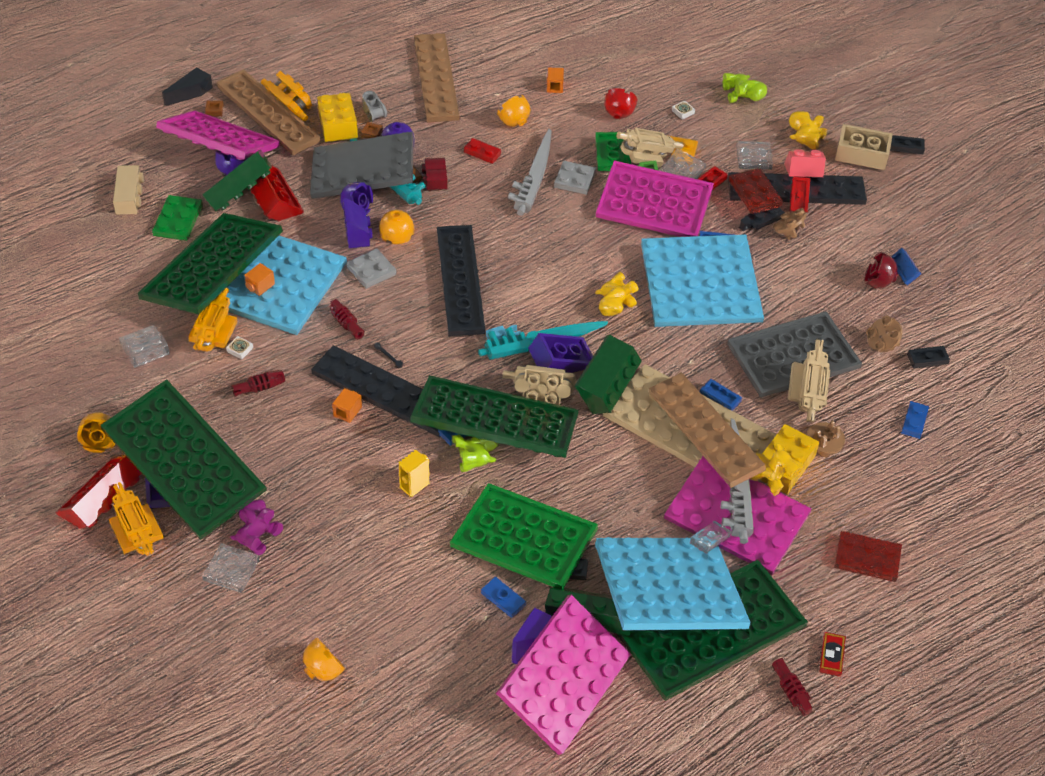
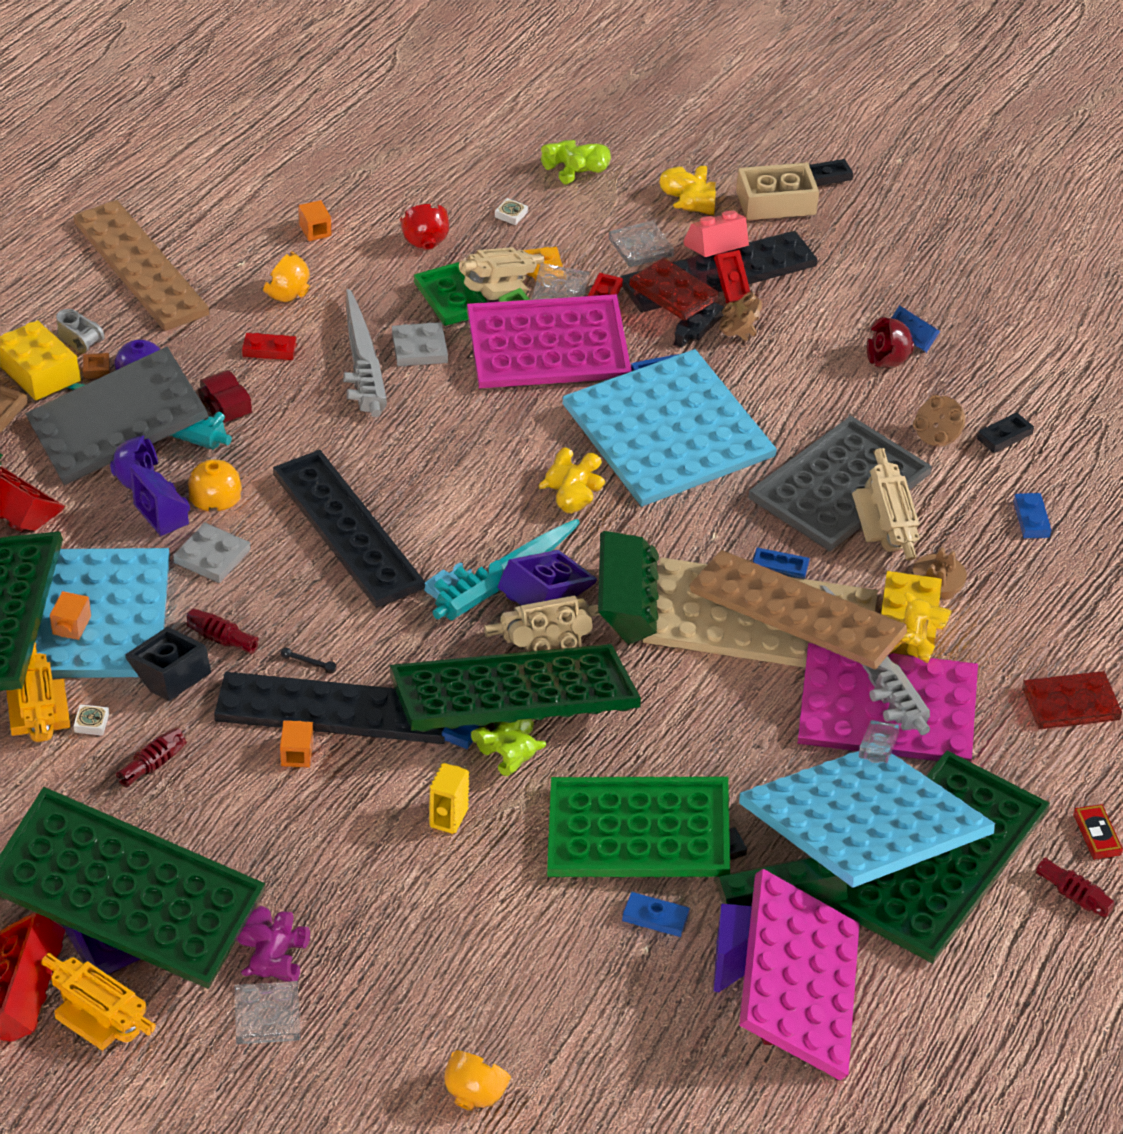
camera: 25 degrees left, 5 degrees down
(301, 328) = (170, 663): none -> black slope

